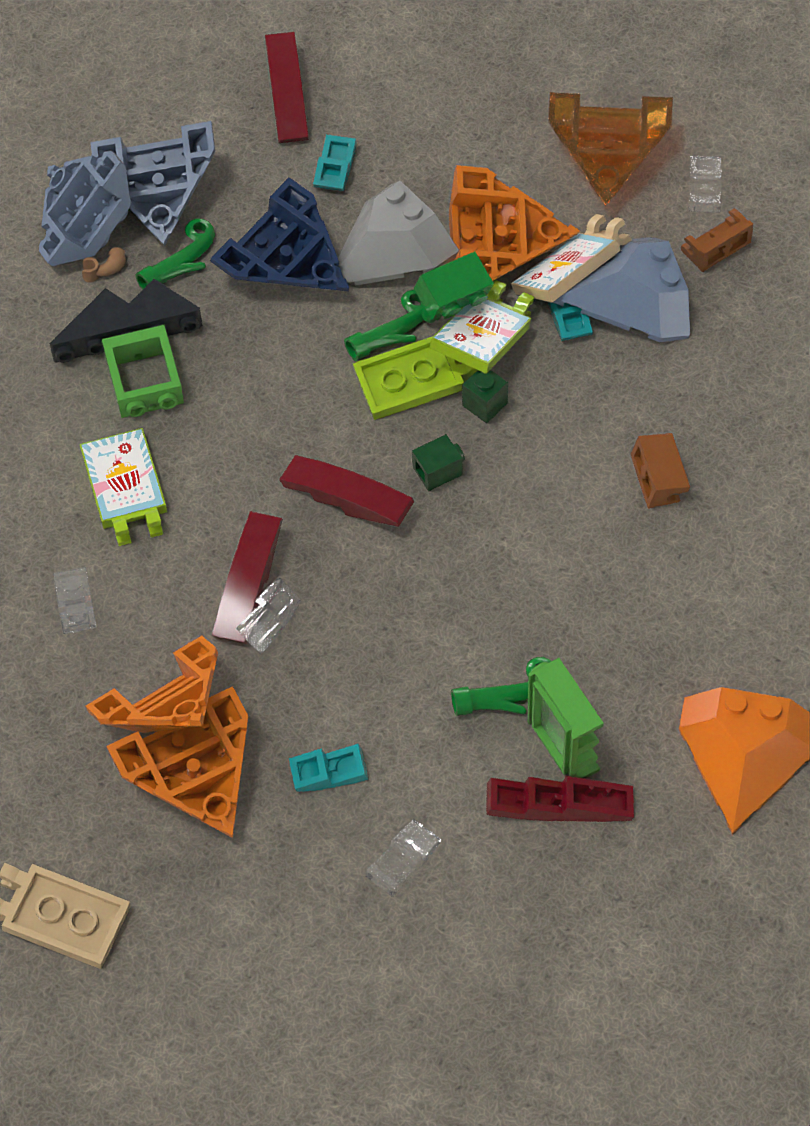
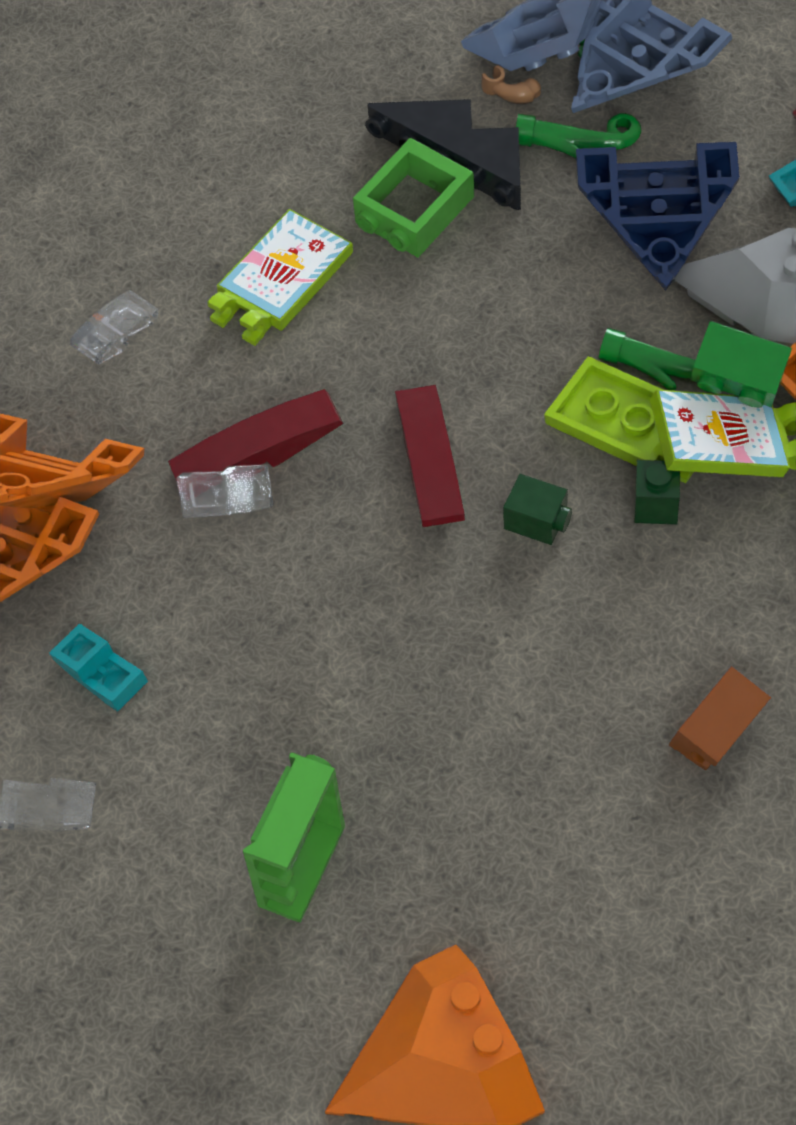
camera: 55 degrees right, 0 degrees up
(493, 698) = (275, 735): green plant -> none
(560, 801) = (226, 907): dark red slope -> none

